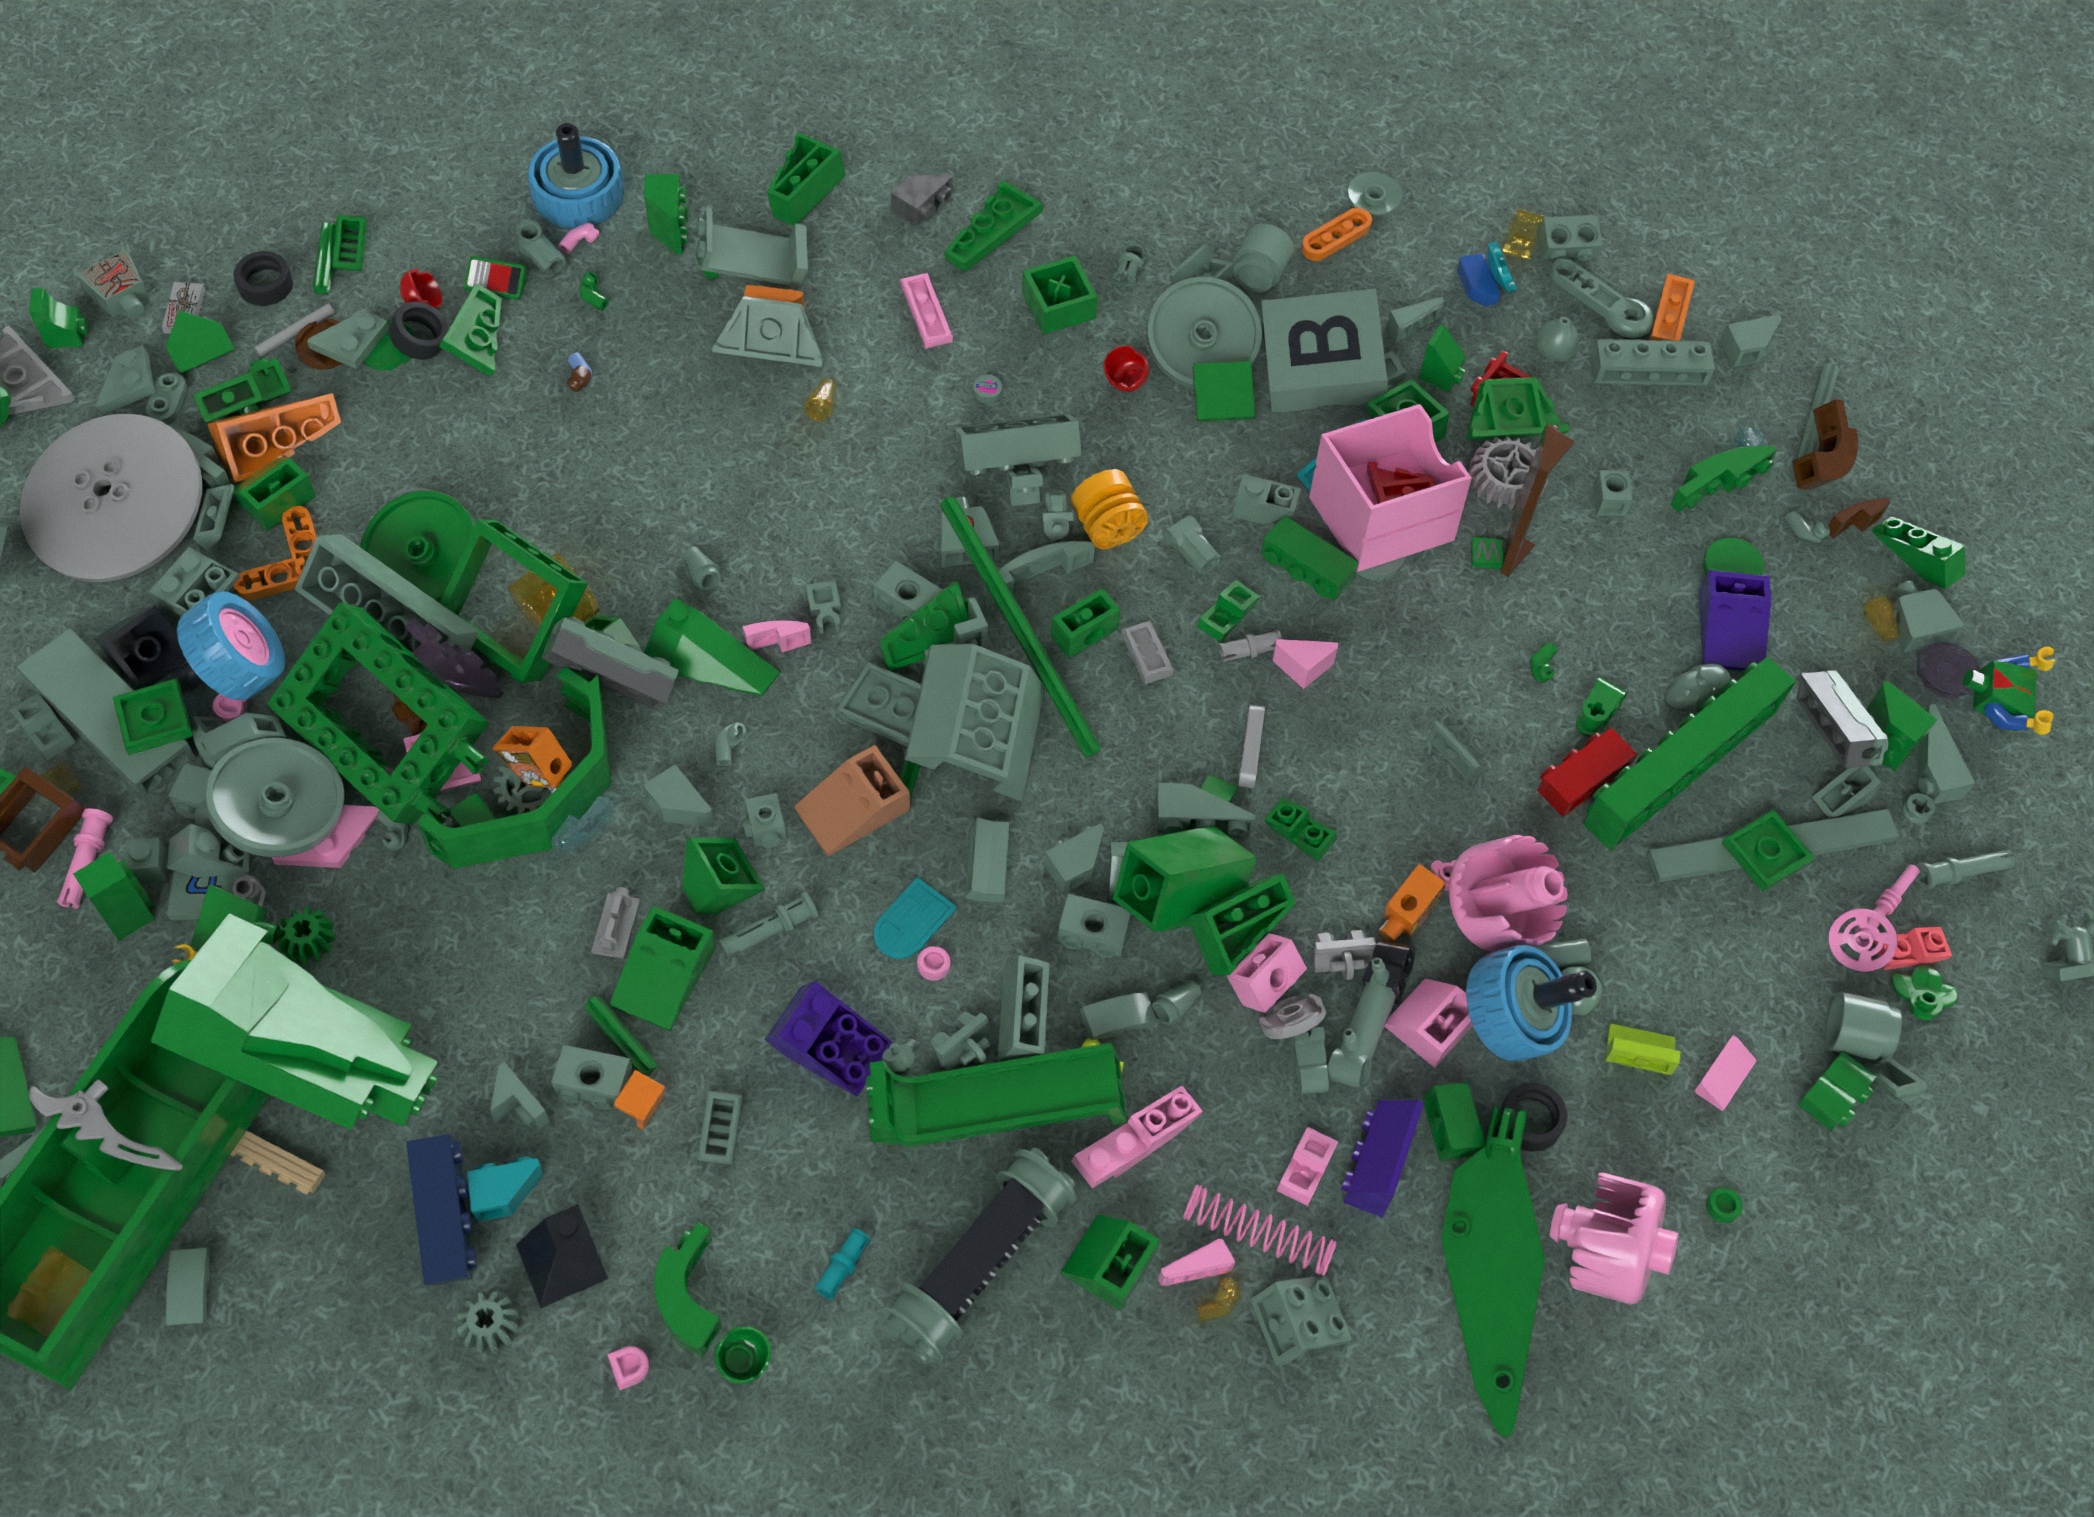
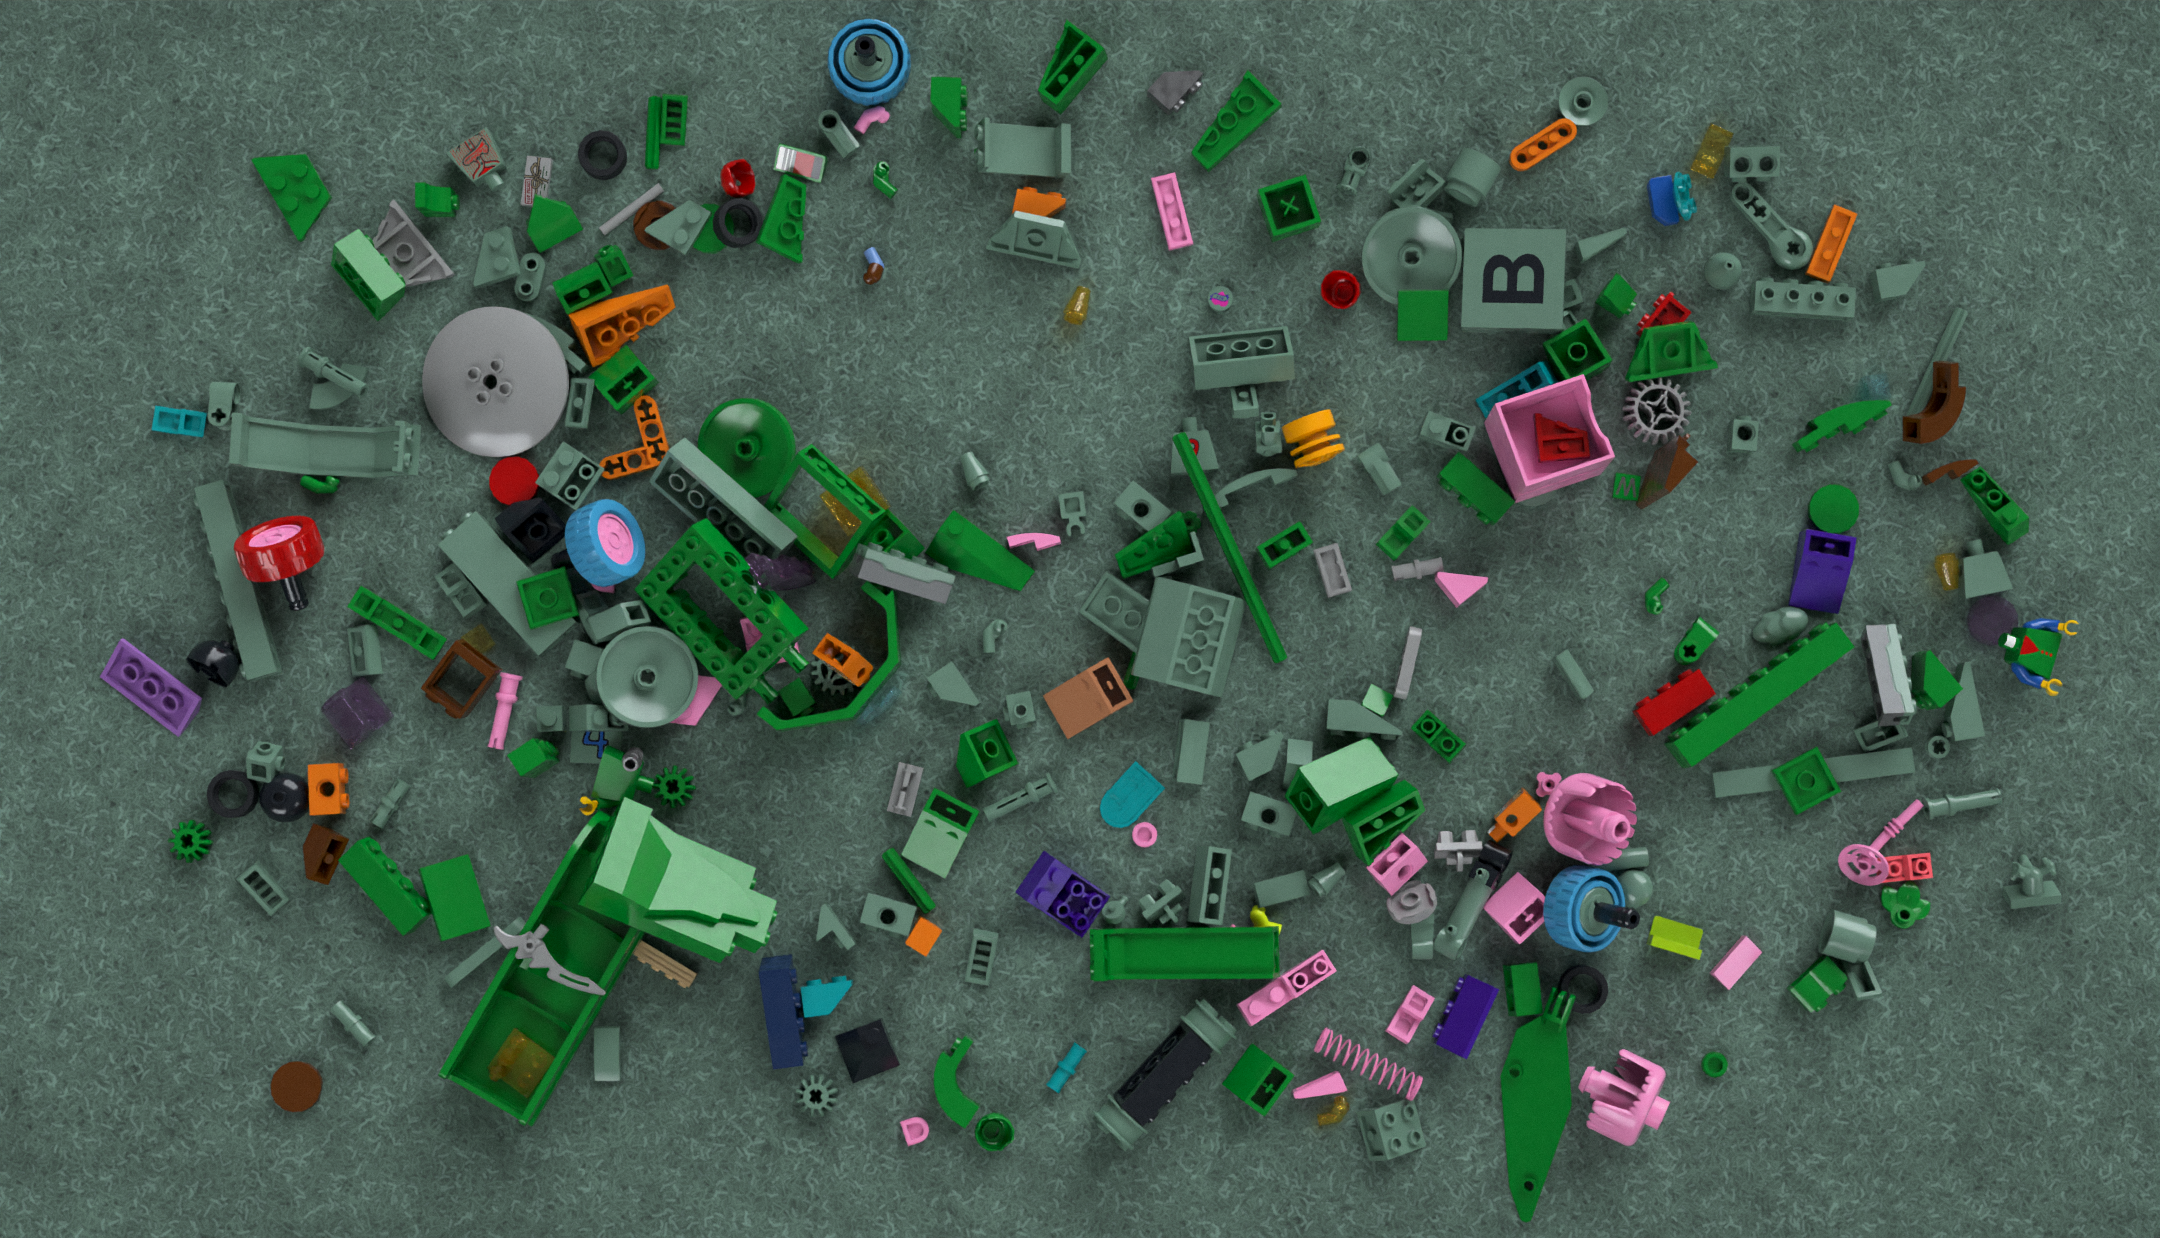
camera: 10 degrees right, 25 degrees up
(121, 600) = (513, 480): none -> red tile

